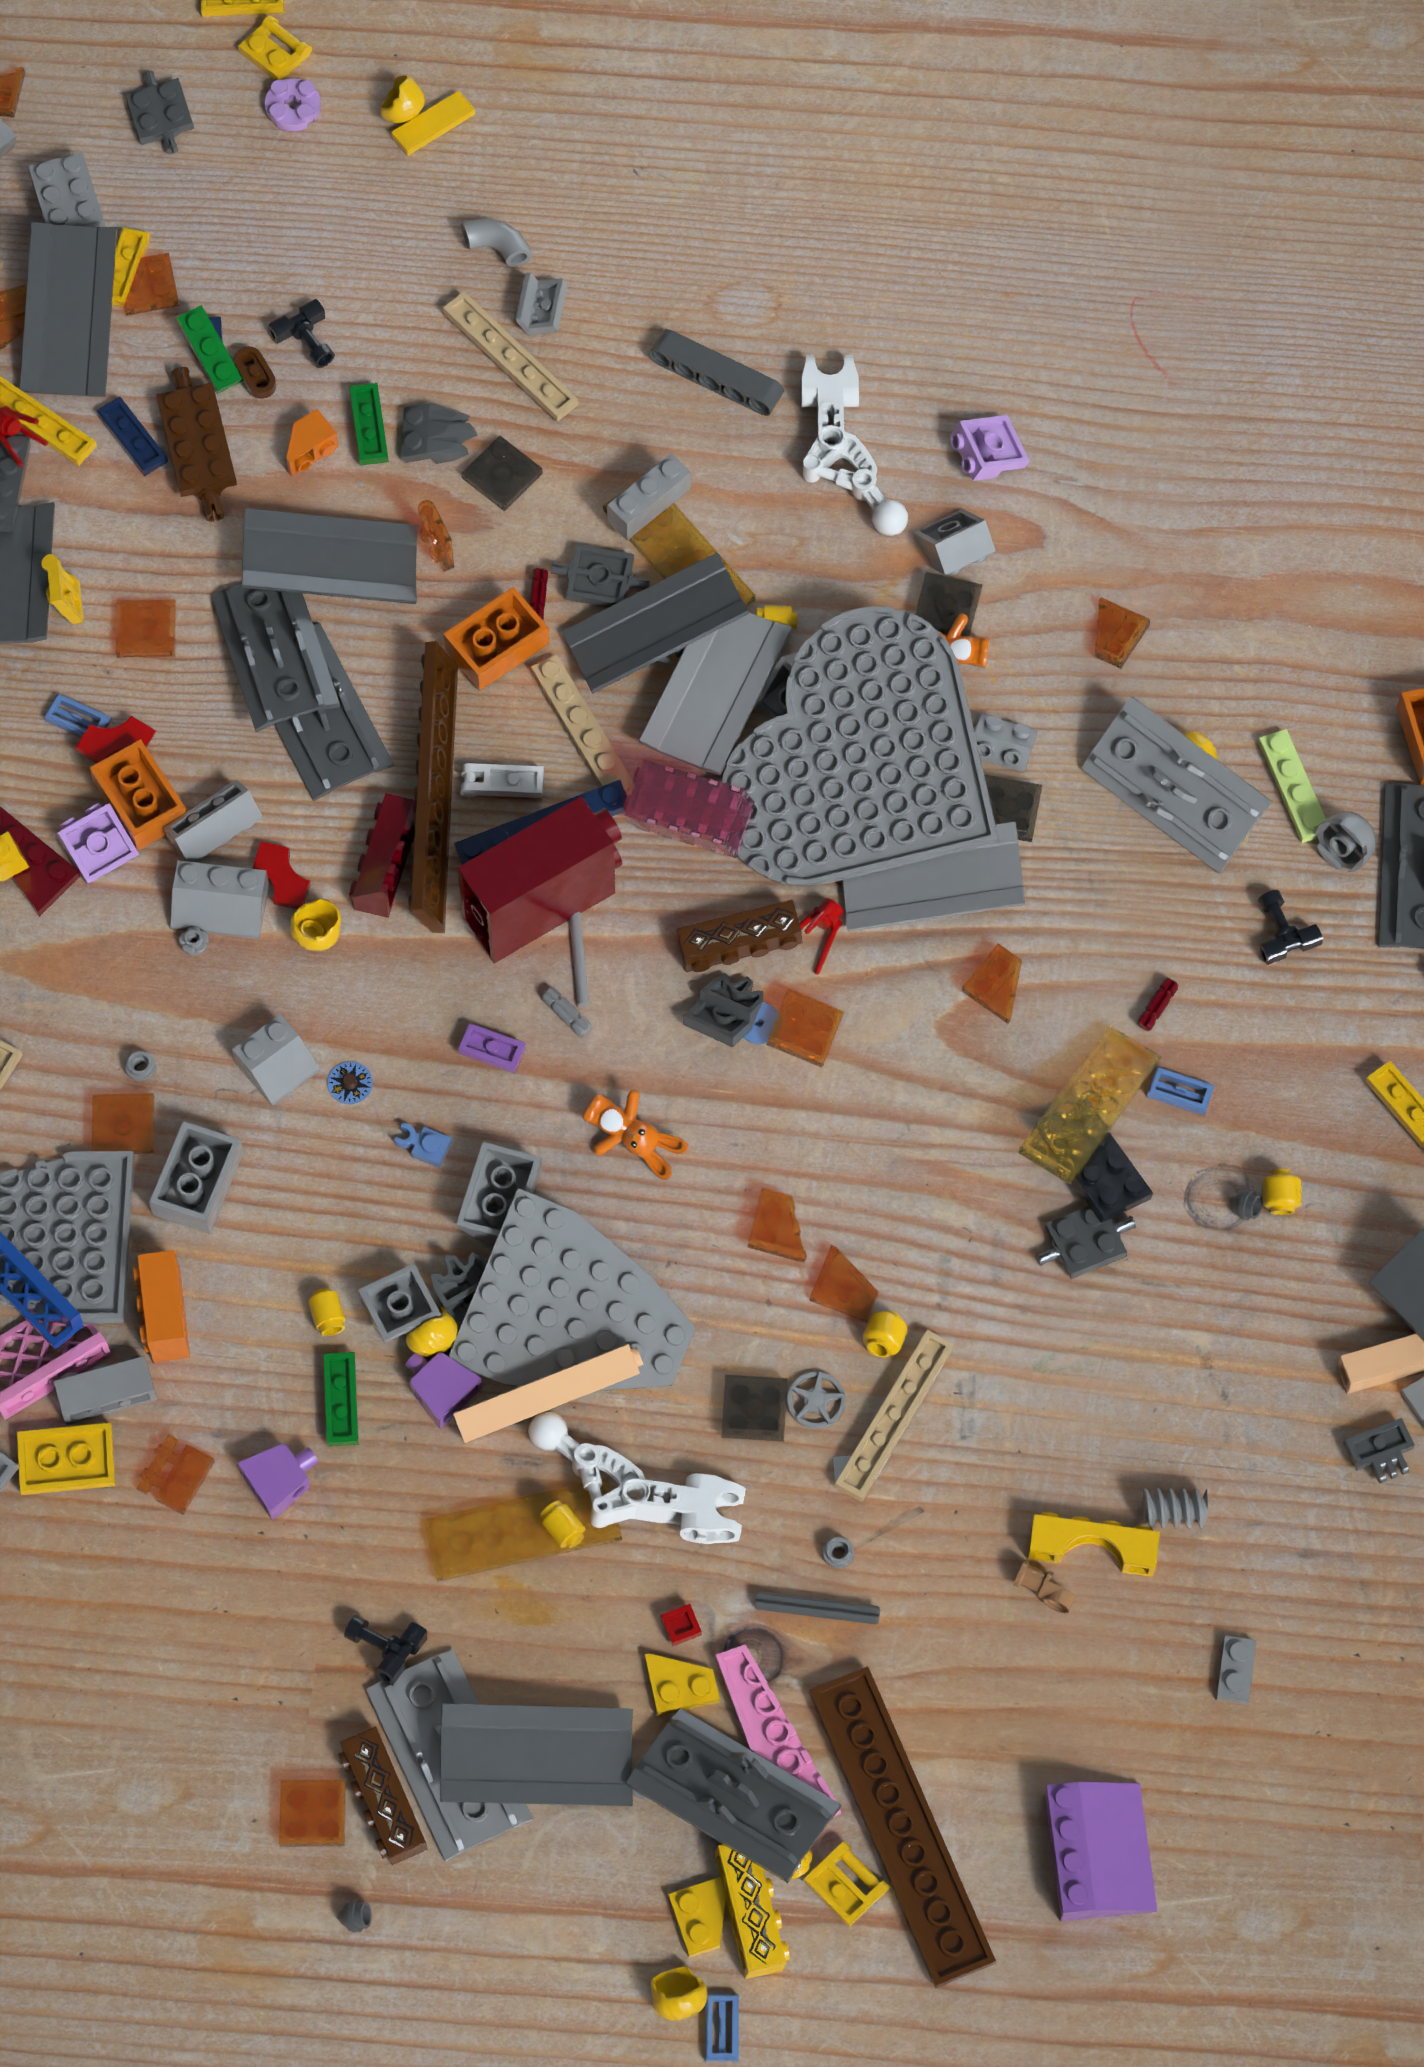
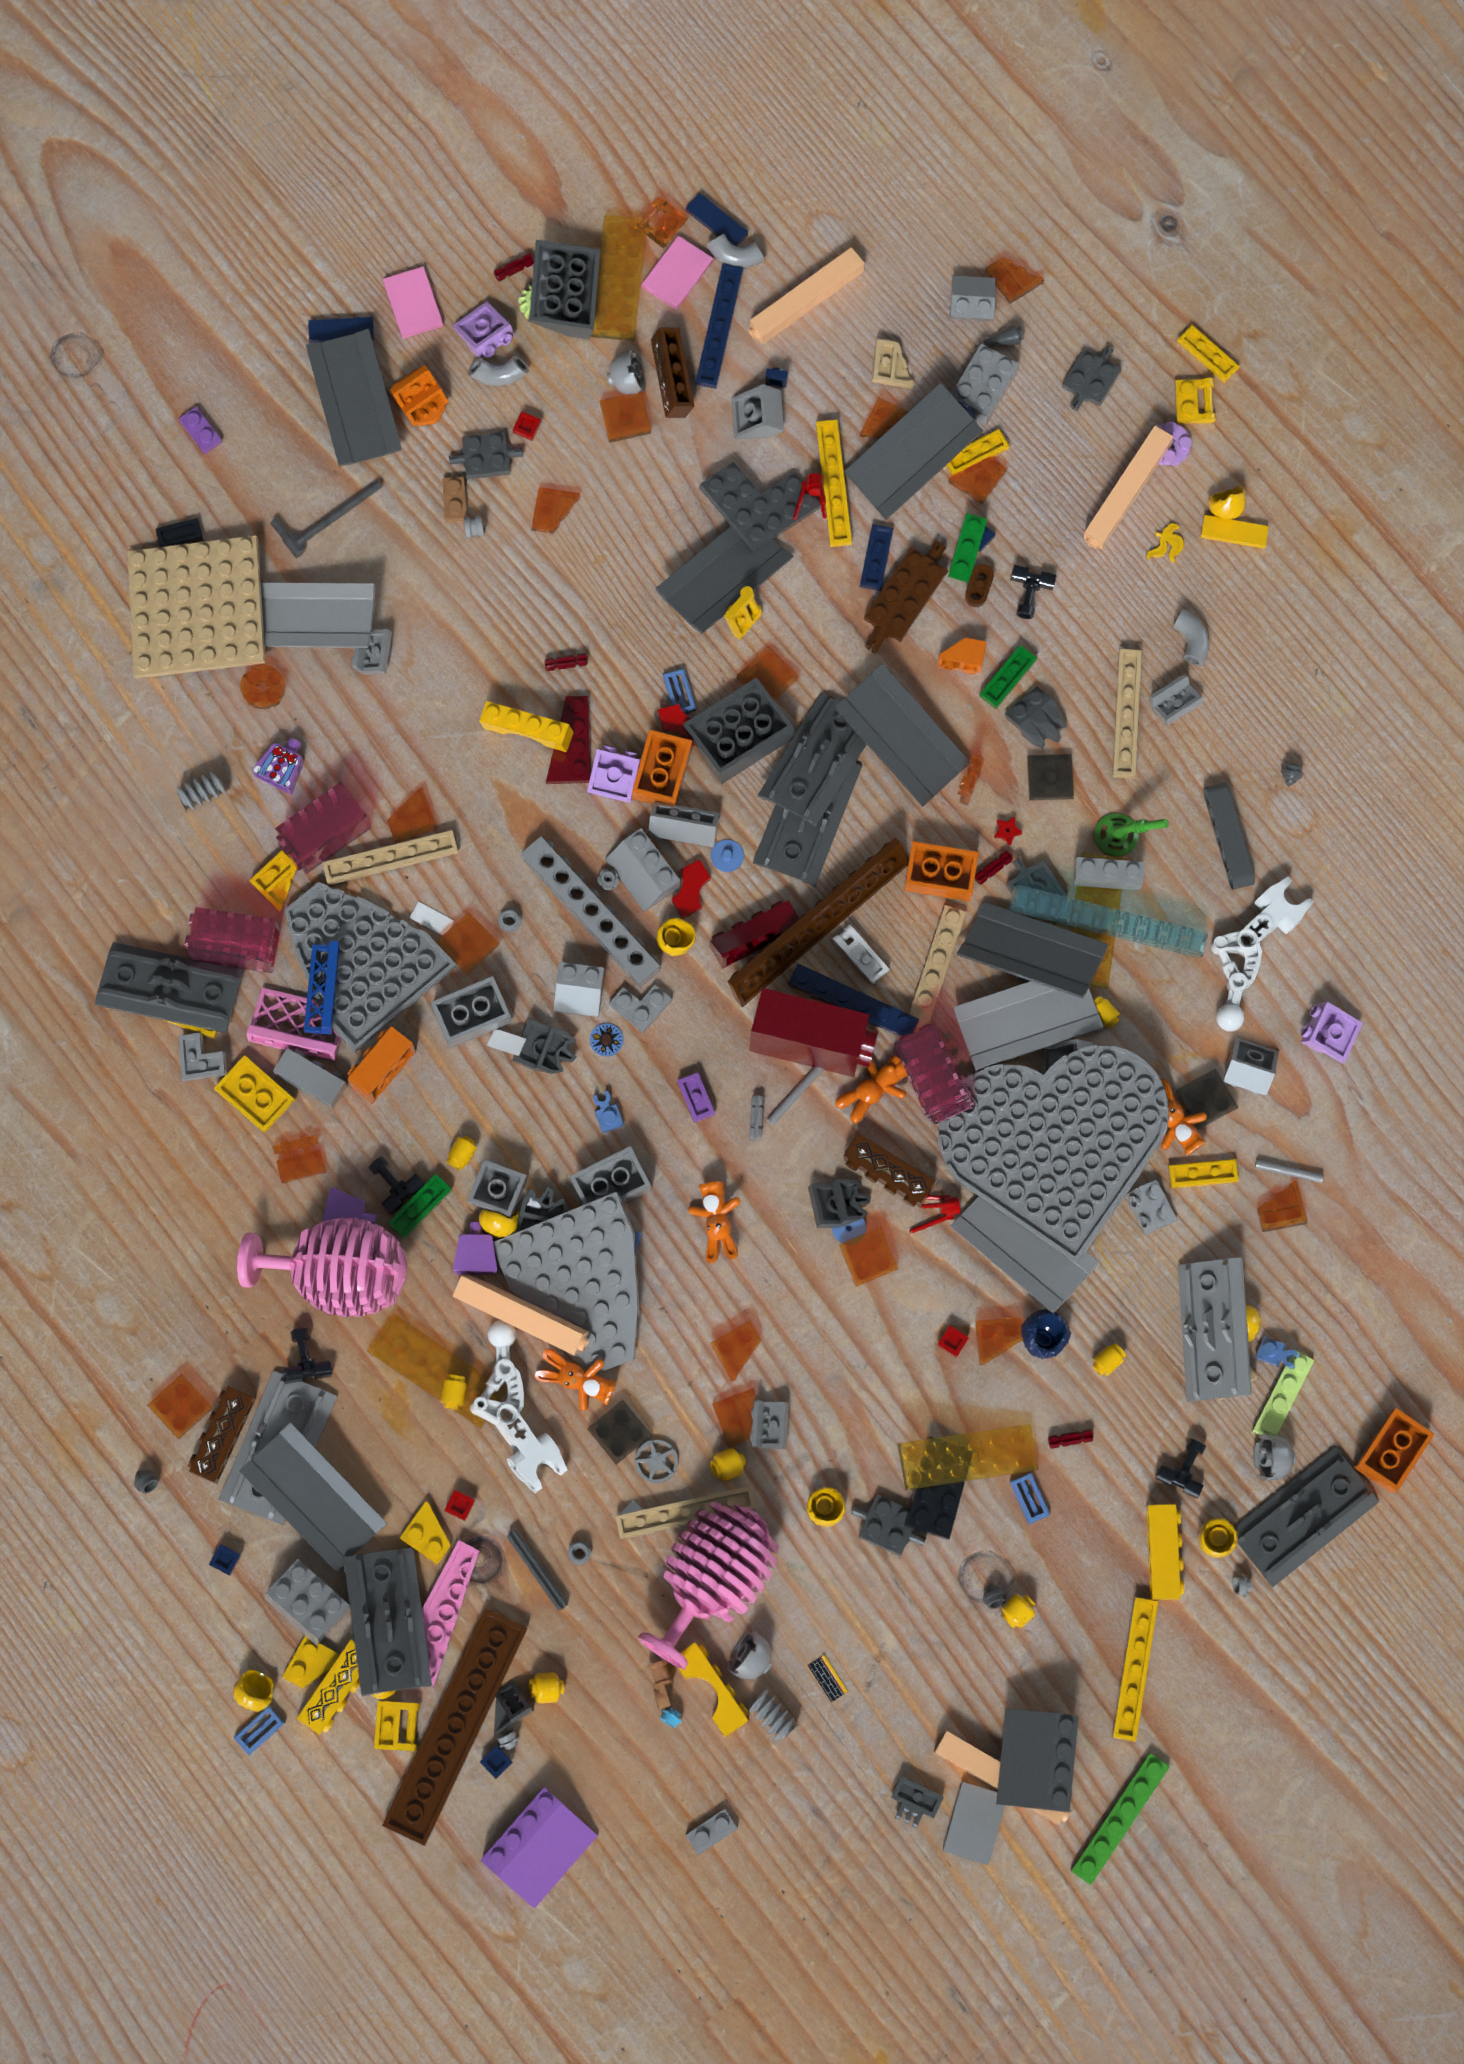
camera: 45 degrees right, 10 degrees up
(46, 141) = (1009, 336): none -> dark grey cone
(62, 1138) = (431, 919): none -> white sticker
(174, 693) = (739, 730): none -> dark grey slope
(222, 993) = (639, 973): none -> light grey brick
(259, 1173) = (506, 1042): none -> white sticker
(282, 816) = (727, 855): none -> medium blue piece
(299, 168) = (1128, 488): none -> light nougat brick
(300, 1144) = (544, 1048): none -> dark grey plate
(305, 1403) = (399, 1190): none -> black bar
(326, 1519) = (335, 1266): none -> bright pink plant
(355, 1028) = (640, 1013): none -> light grey plate
(379, 182) = (1172, 539): none -> yellow piece
(514, 1906) = (225, 1560): none -> dark blue plate
(515, 560) = (1007, 836): none -> red plate
(616, 456) = (1120, 833): none -> bright green dish
(637, 1858) = (307, 1602): none -> light grey brick
(645, 882) = (872, 1090): none -> orange animal
(658, 1400) = (573, 1377): none -> orange animal
(693, 537) = (1108, 921): none -> clear light blue beam
(714, 275) = (1291, 773): none -> dark grey plate
(883, 1260) = (769, 1425): none -> light grey bracket
(932, 1754) = (509, 1707): none -> dark grey slope
(945, 1700) = (546, 1687): none -> yellow head
(962, 1025) = (953, 1341): none -> red plate
(962, 1785) = (508, 1739): none -> light grey plate
(975, 1816) = (496, 1762): none -> dark blue plate
(984, 1429) = (715, 1571): none -> bright pink plant
(1014, 671) = (1203, 1173): none -> yellow tile
(1015, 1277) = (826, 1506): none -> yellow hair
(1016, 803) = (1114, 1248): clear smoke plate -> none
(1036, 933) = (1045, 1333): none -> dark blue hair
(1085, 597) = (1289, 1171): none -> light grey bar
(1086, 1607) = (671, 1717): none -> medium azure plate
(1096, 1476) = (751, 1657): none -> light grey cylinder
(1114, 903) = (1108, 1359): none -> yellow brick
(1183, 1428) = (827, 1678): none -> black sticker
(1245, 756) = (1274, 1352): none -> medium blue plate
(1346, 1015) = (1164, 1553): none -> yellow brick
(1378, 955) = (1217, 1538): none -> yellow hair

